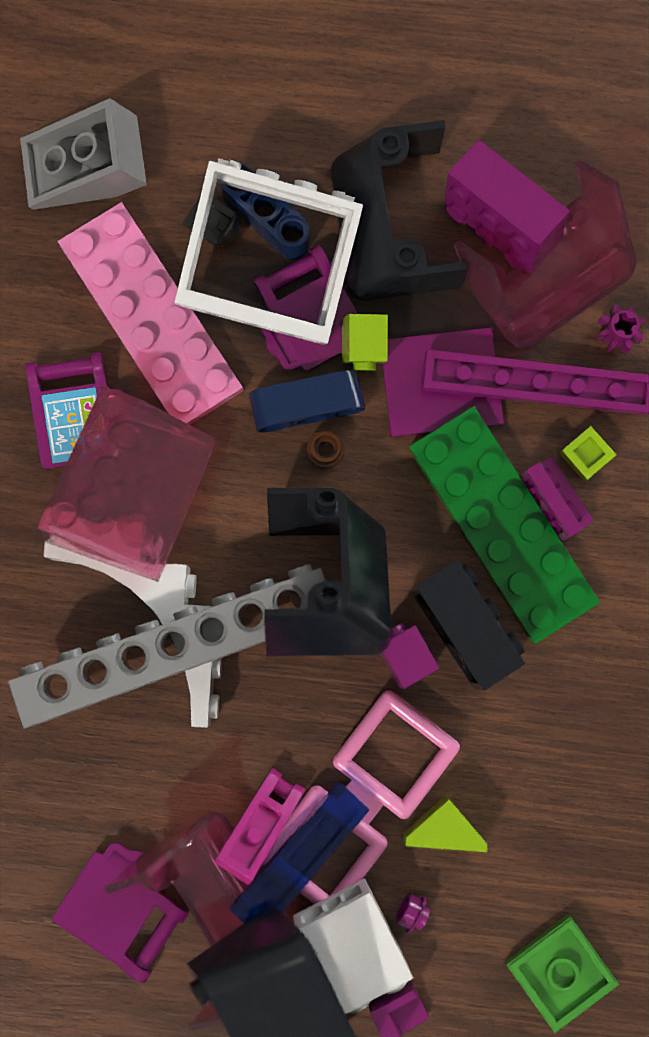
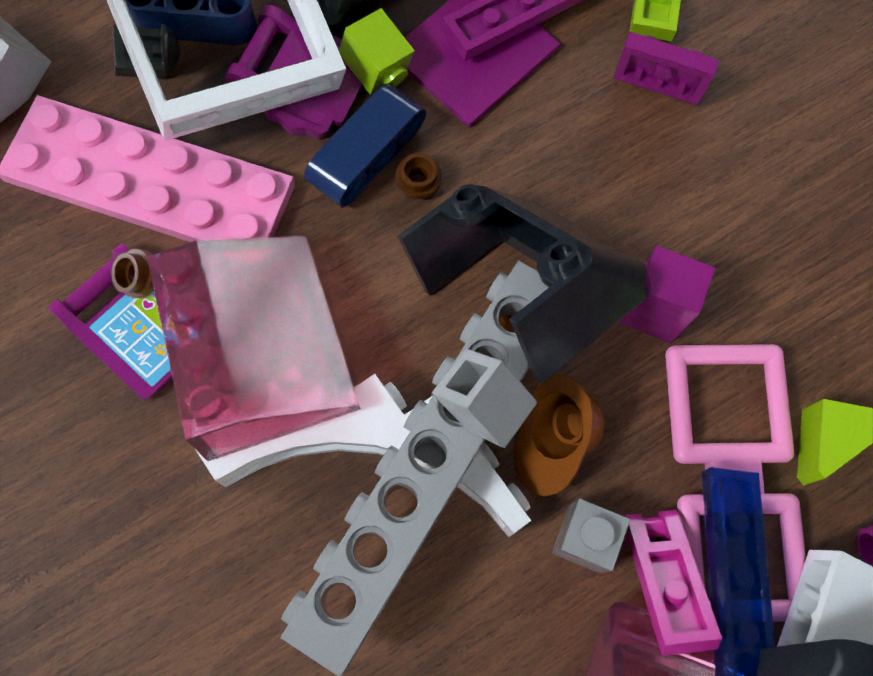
camera: 40 degrees left, 10 degrees down
(89, 382) = (132, 273): none -> reddish brown plate
(221, 649) = (485, 397): none -> light grey brick
(237, 764) = (591, 536): none -> light grey brick
(269, 688) = (557, 435): none -> dark orange piece
(469, 626) = (698, 219): black brick -> none
(503, 525) = (638, 126): green plate -> none

